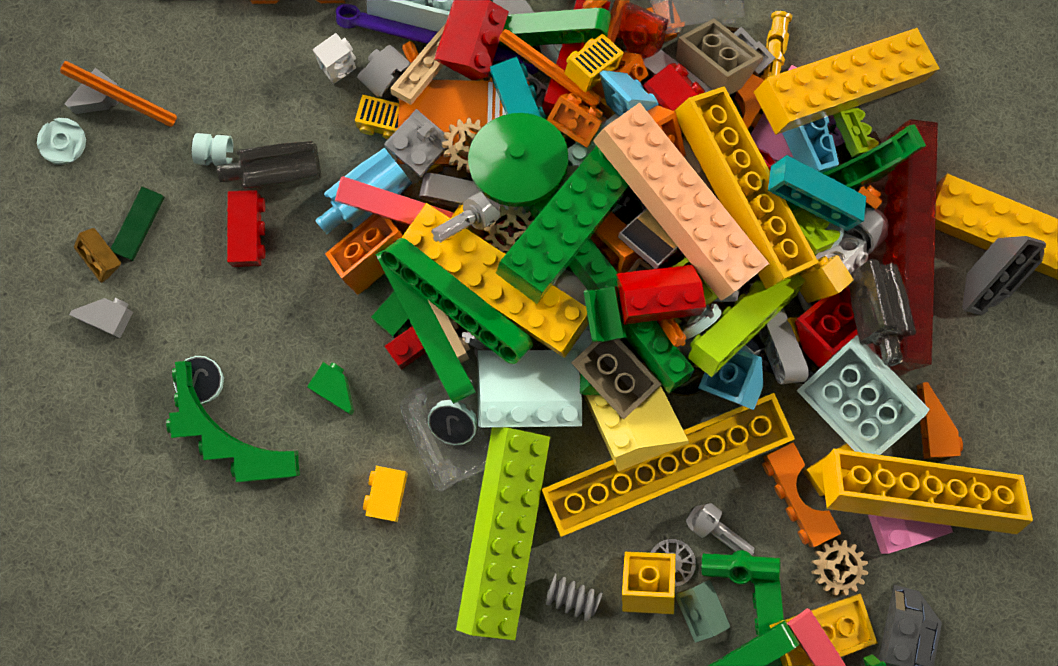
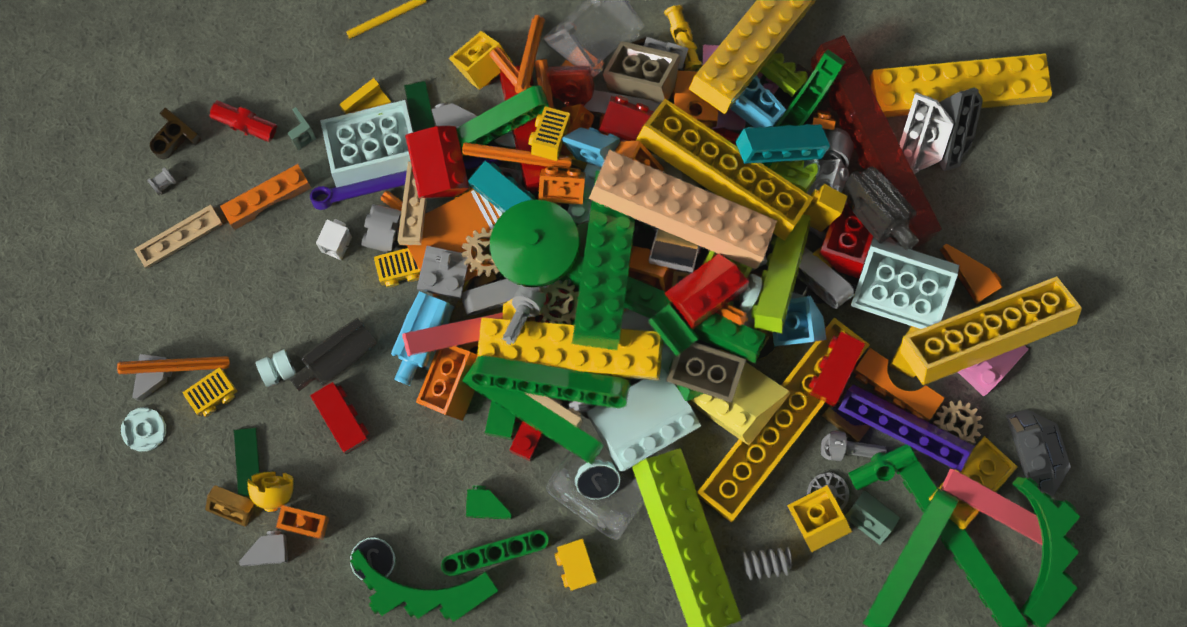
camera: 30 degrees left, 0 degrees up
(139, 139) = (210, 392): none -> yellow brick
(139, 260) = (270, 490): none -> yellow cylinder
(151, 307) = (302, 522): none -> orange brick
(304, 435) = (483, 552): none -> green beam
(730, 501) = (851, 426): none -> pearl gold slope
(748, 443) = (836, 368): none -> red brick
(751, 109) = (687, 102): none -> orange brick
(786, 542) = (906, 427): none -> dark purple brick
(968, 260) = (925, 133): none -> white wedge

